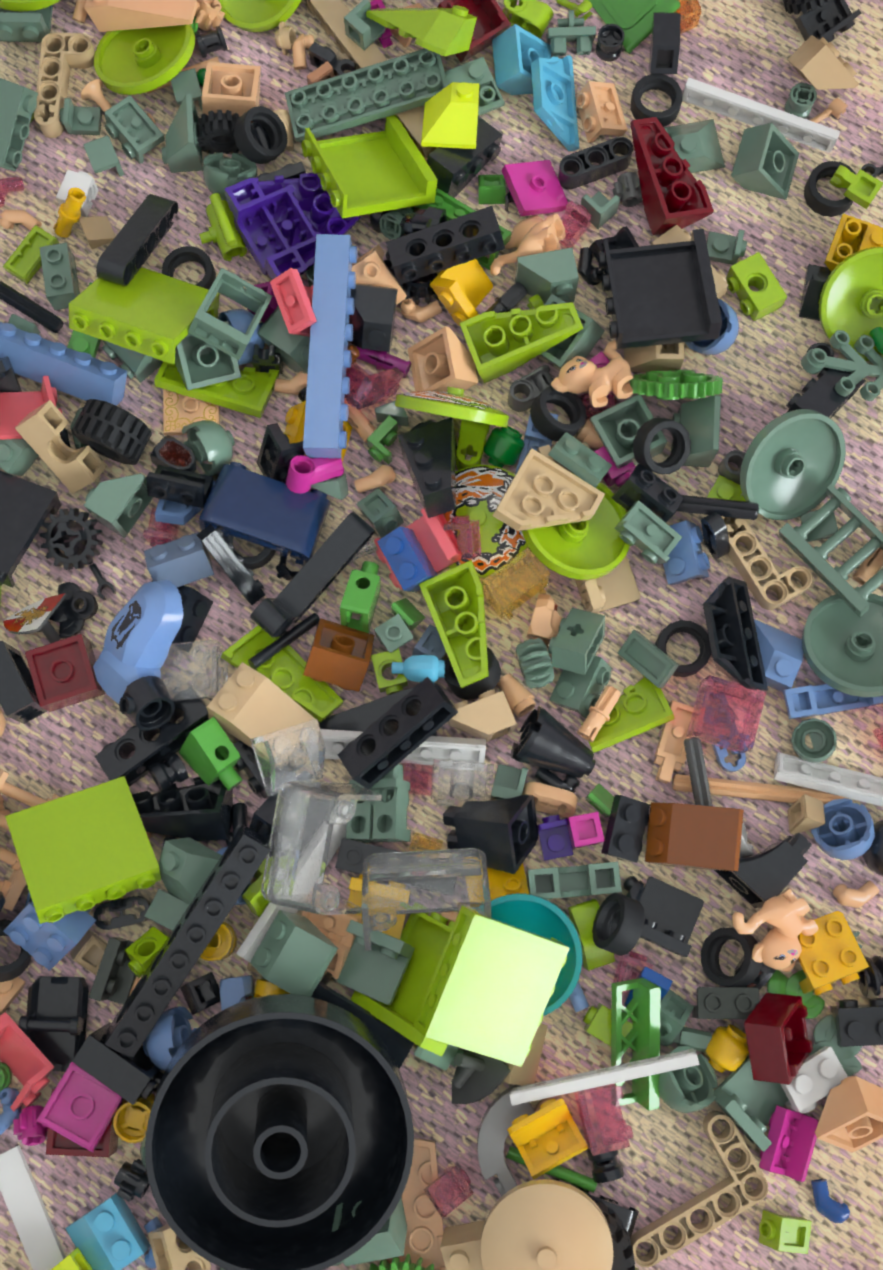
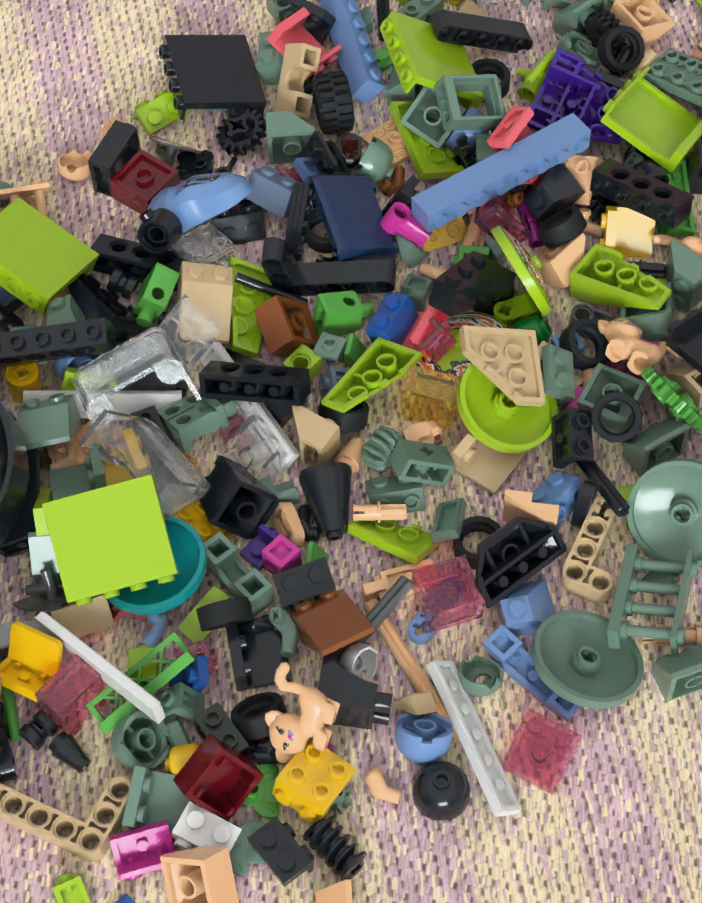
camera: 55 degrees right, 20 degrees down
(242, 440) = (392, 186): none -> dark orange arm
(419, 667) = (320, 377): medium azure plant -> none
(431, 338) = (562, 227): none -> black tyre
(645, 1147) = (68, 751): none -> black cone
(648, 533) = (543, 453): sand green bracket -> none
(660, 873) = (286, 626): none -> sand green arm
(694, 589) = (520, 504): none -> light nougat slope

